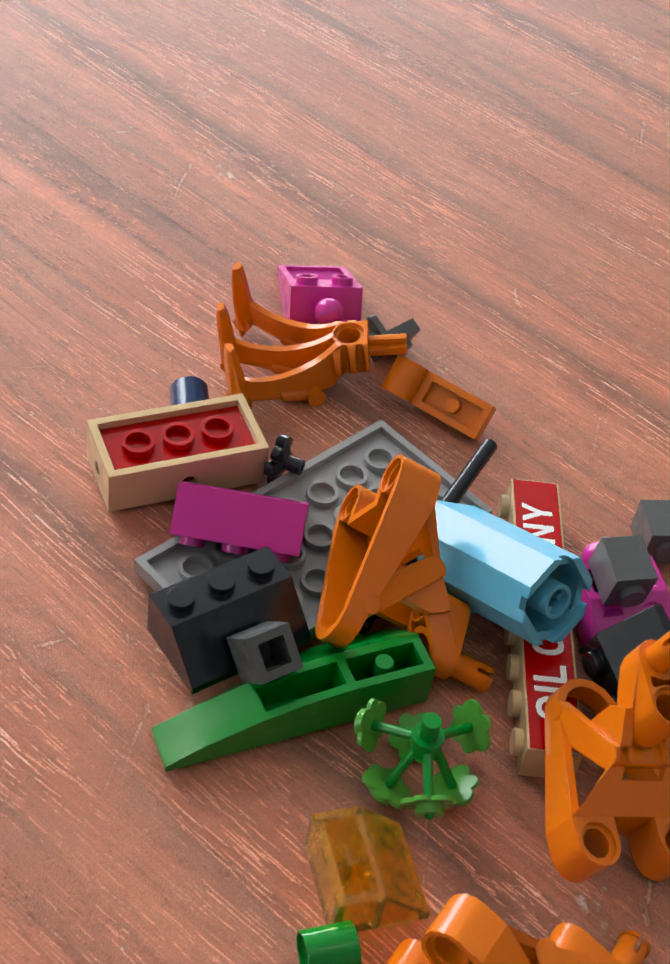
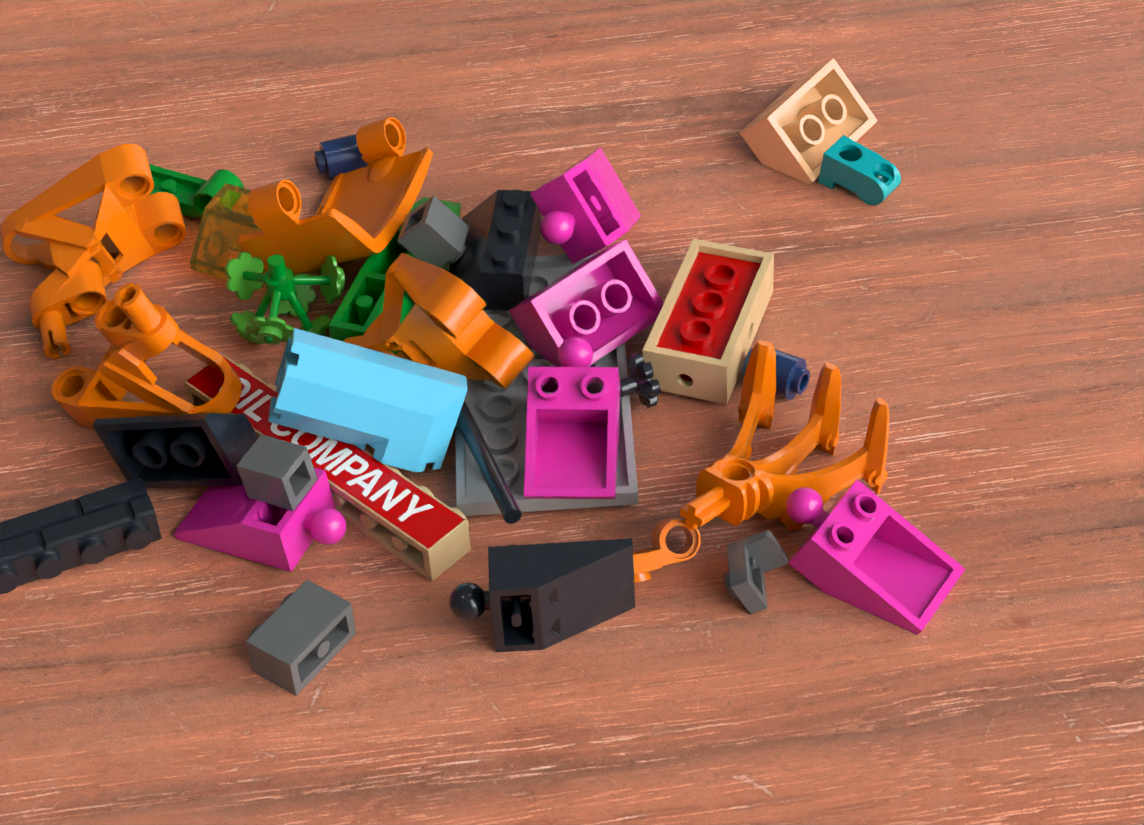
camera: 140 degrees right, 0 degrees up
(129, 560) = (585, 207): none -> dark pink slope
(161, 881) = (338, 156): none -> dark blue brick
(259, 768) = (356, 213): none -> orange panel
(361, 450) = (571, 431): none -> dark pink slope
(529, 401) = (550, 591): none -> black slope

